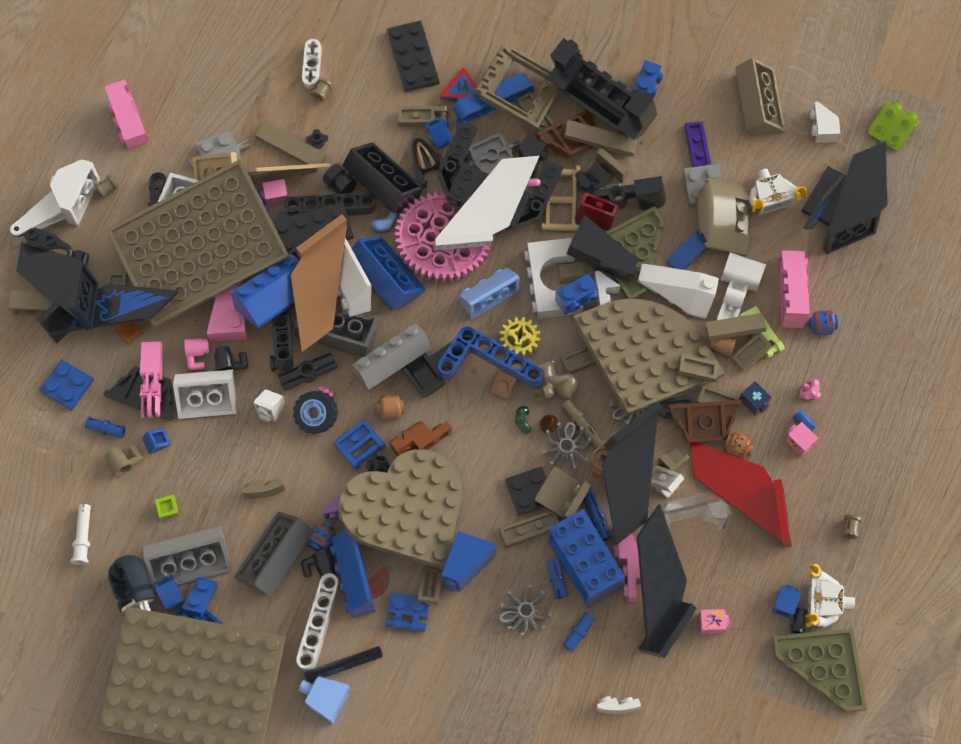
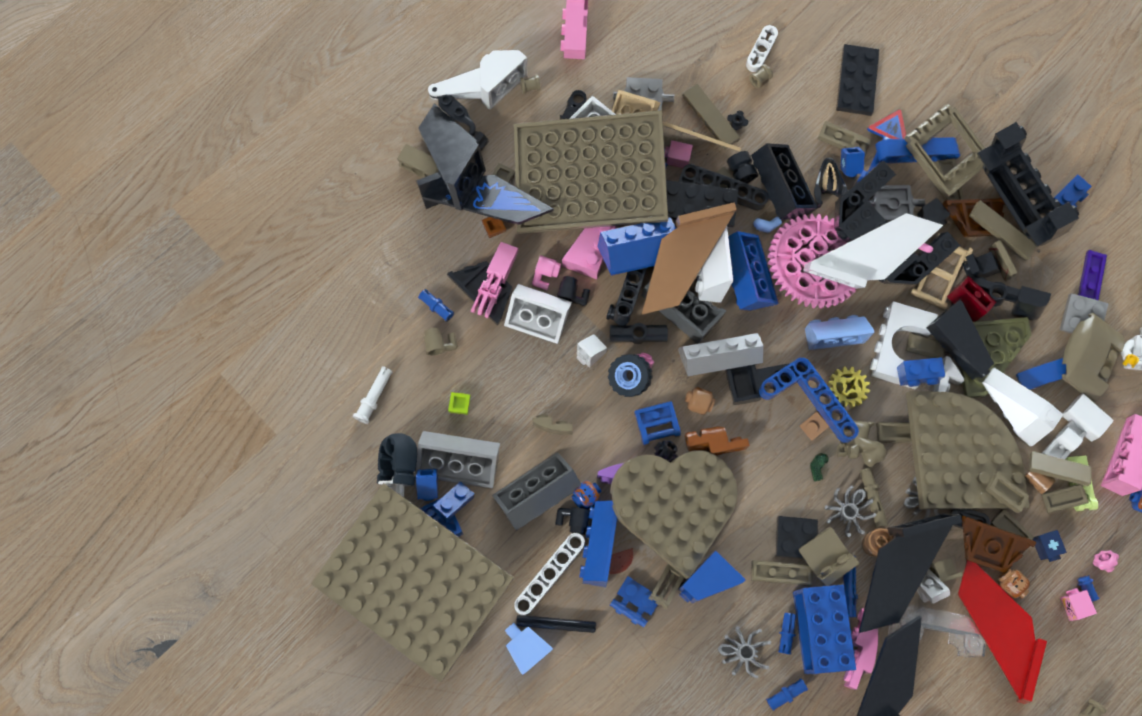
camera: 20 degrees right, 5 degrees up
(66, 384) = (418, 250): blue plate -> none
(156, 440) = (476, 336): blue slope -> none
(548, 422) = (841, 481): reddish brown plate -> none

